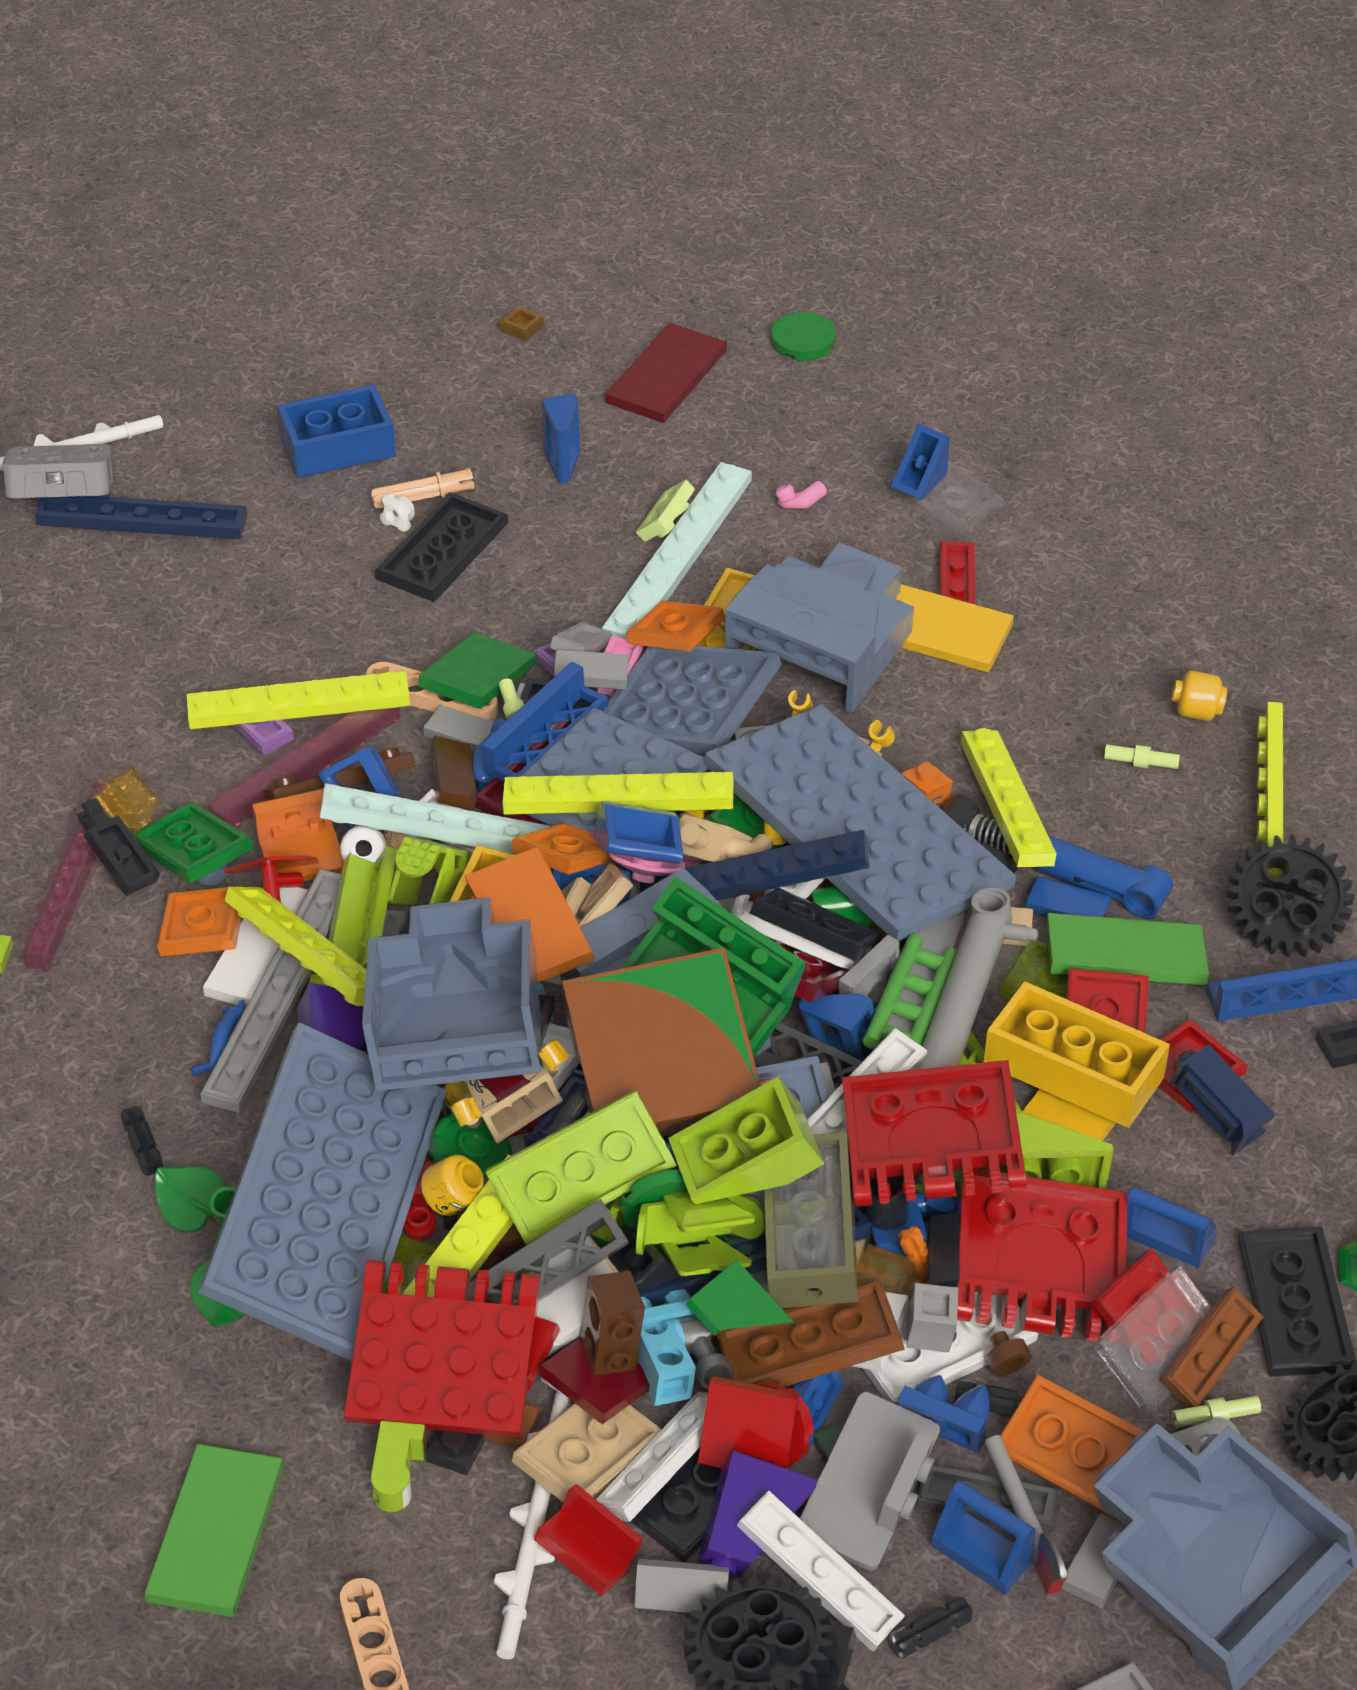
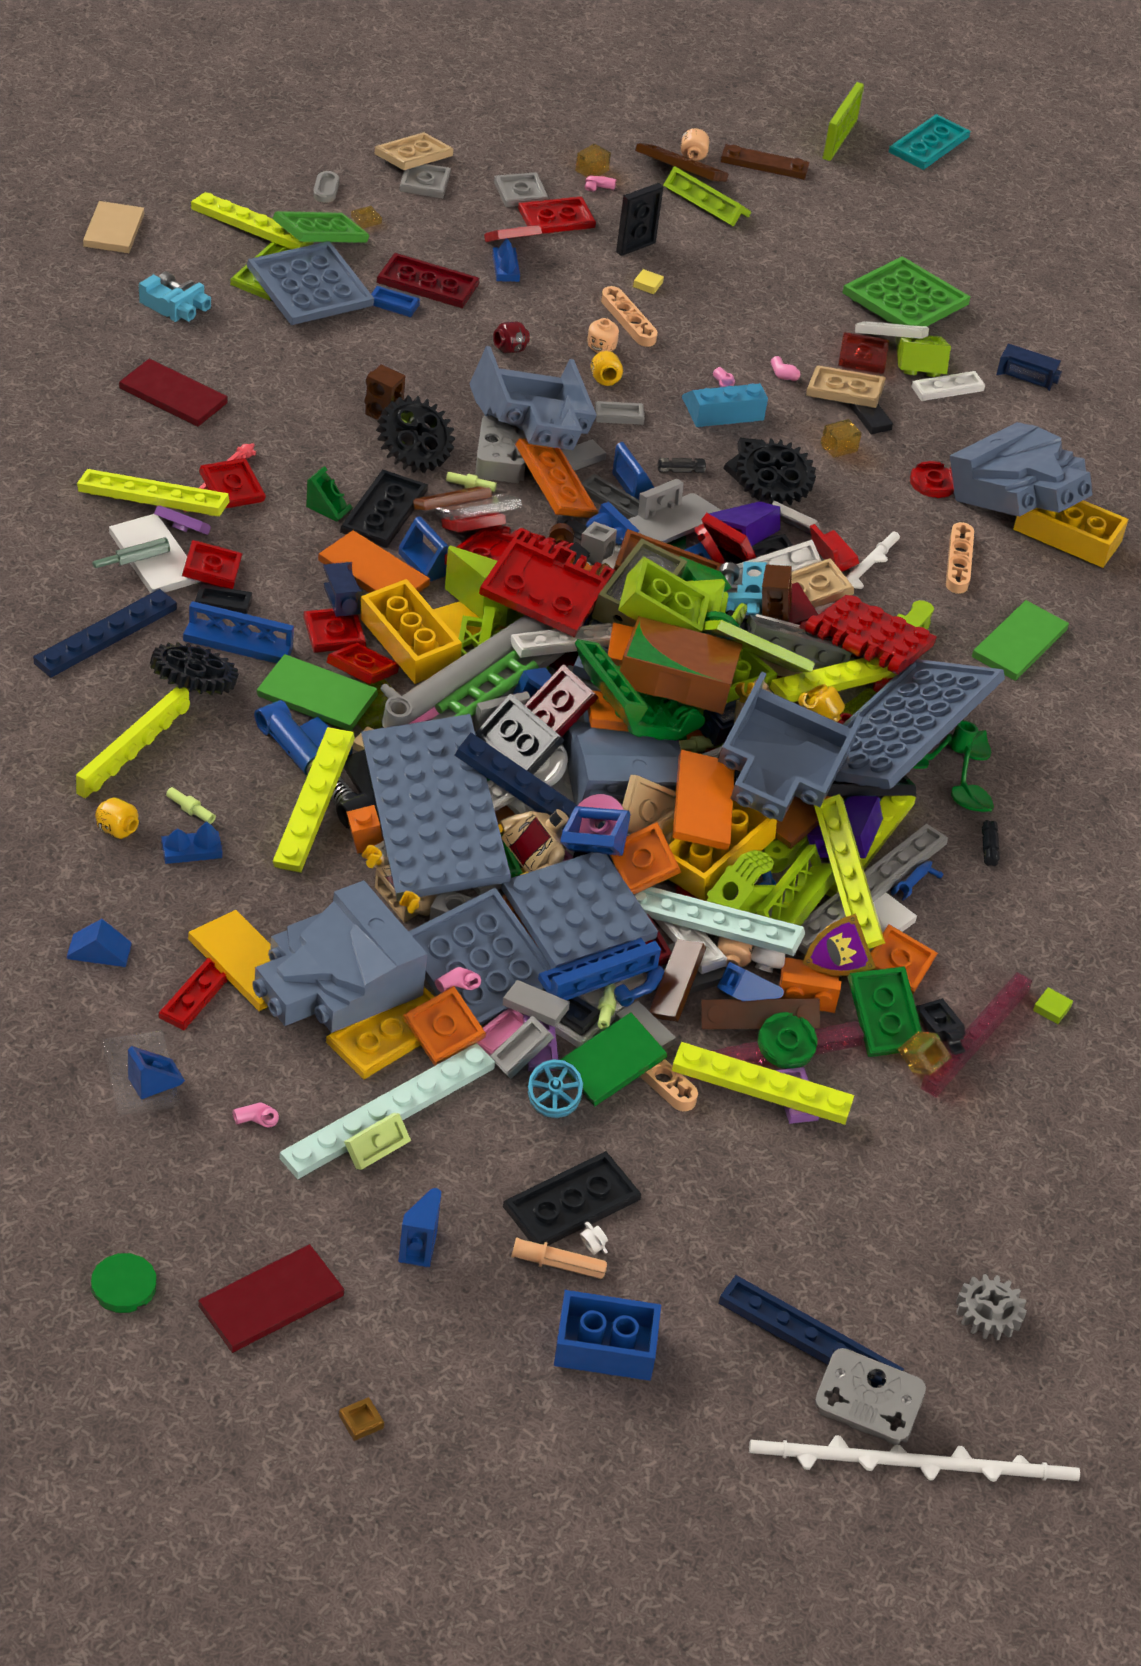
camera: 160 degrees left, 0 degrees up
(292, 751) = (787, 1040): none -> green tile
(519, 614) = (555, 1088): none -> medium azure wheel
(650, 791) = (587, 875): neon yellow plate -> none
(692, 653) = (460, 978): none -> bright pink arm
(821, 1570) = (725, 490): white tile -> none
(1047, 1556) = (607, 470): piece -> none
(1088, 575) = (100, 945): none -> blue slope
(1098, 714) = (196, 846): none -> blue tile
(1224, 1182) = (371, 564): none -> orange tile

